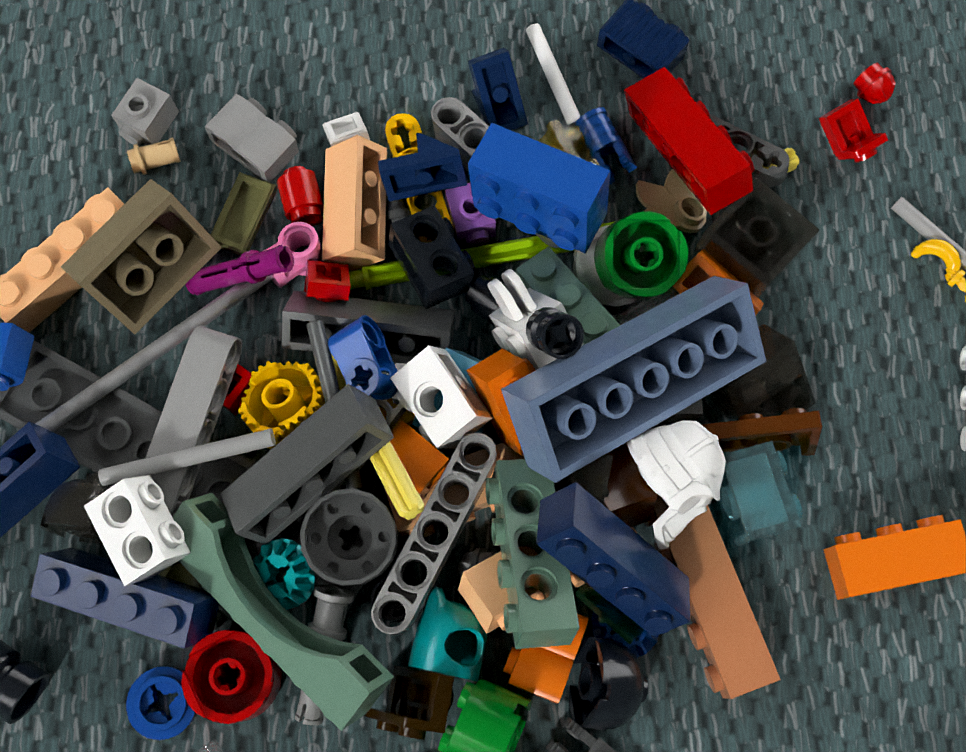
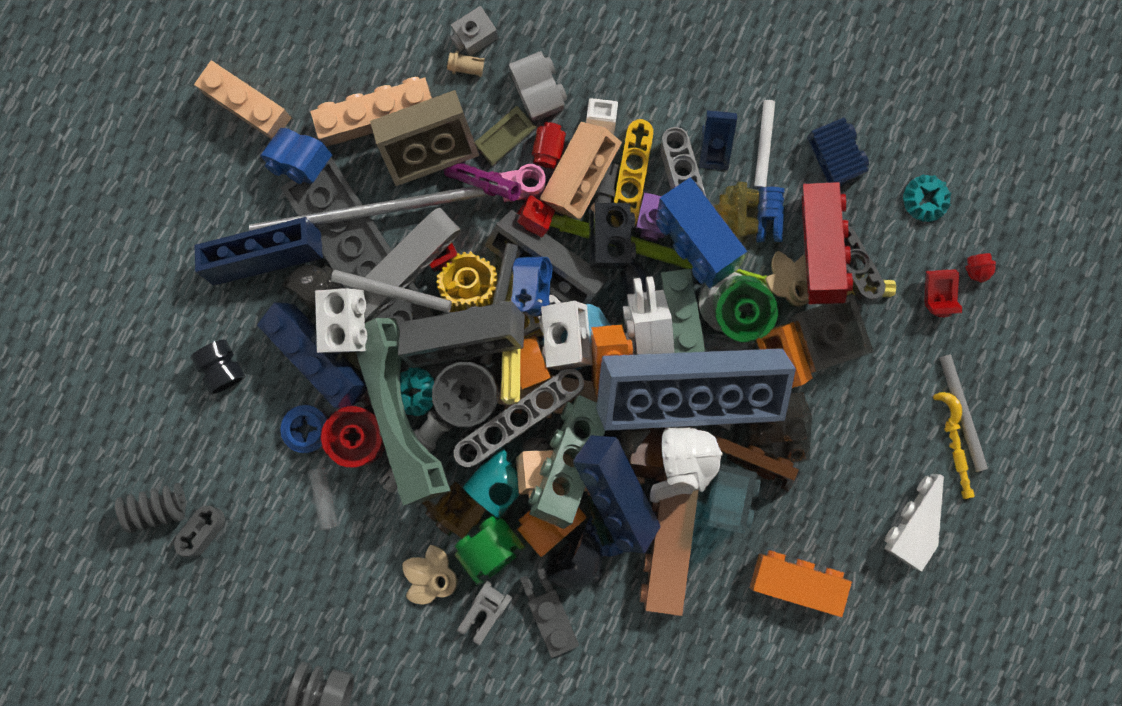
camera: 30 degrees right, 10 degrees up
(428, 171) = (640, 176): dark blue slope -> none
(563, 337) = (655, 343): black wheel -> none
(753, 44) = (913, 196): none -> teal gear

